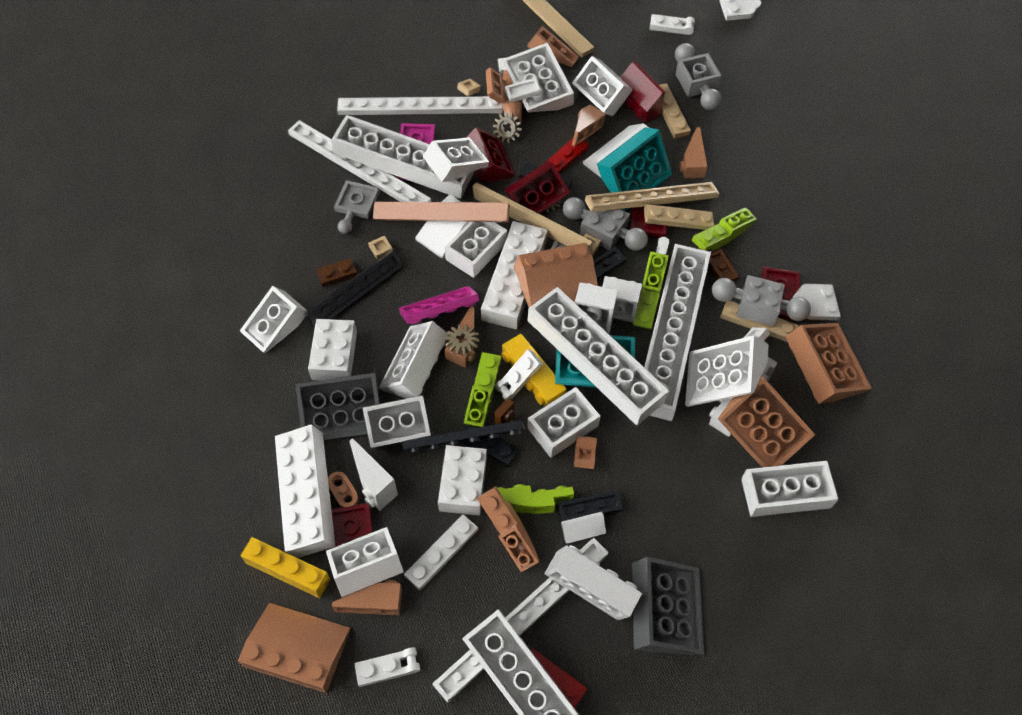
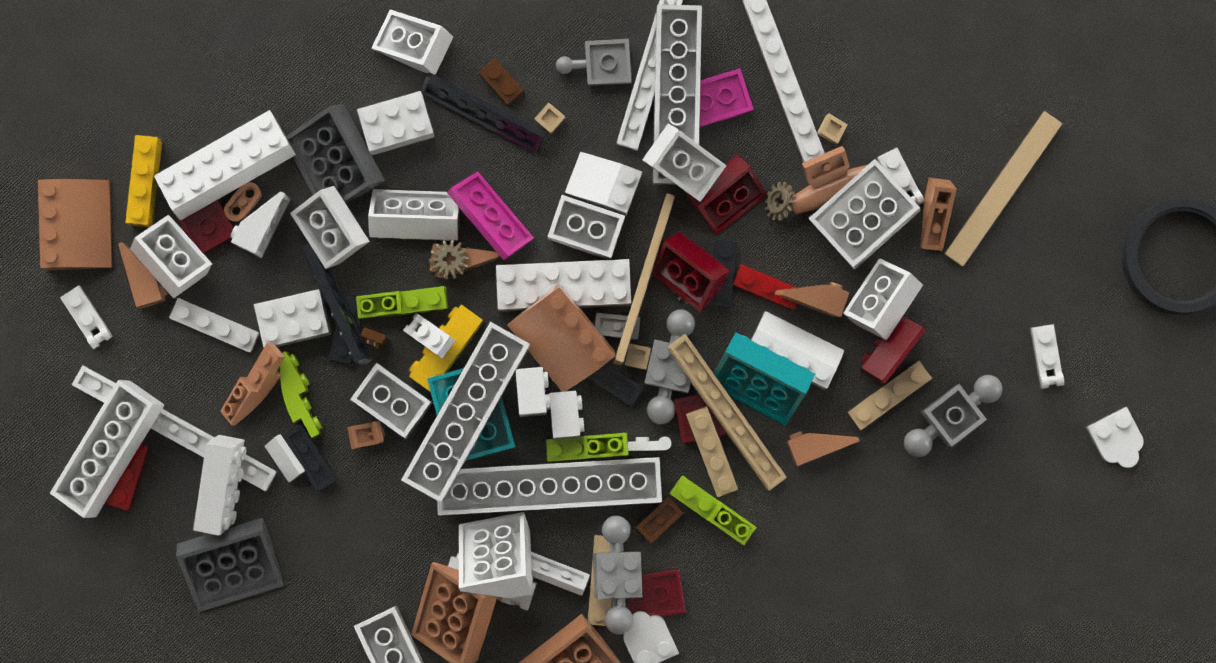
camera: 70 degrees right, 25 degrees up
(441, 211) = (610, 171): tile -> none
(523, 90) = (833, 202): white tile -> none

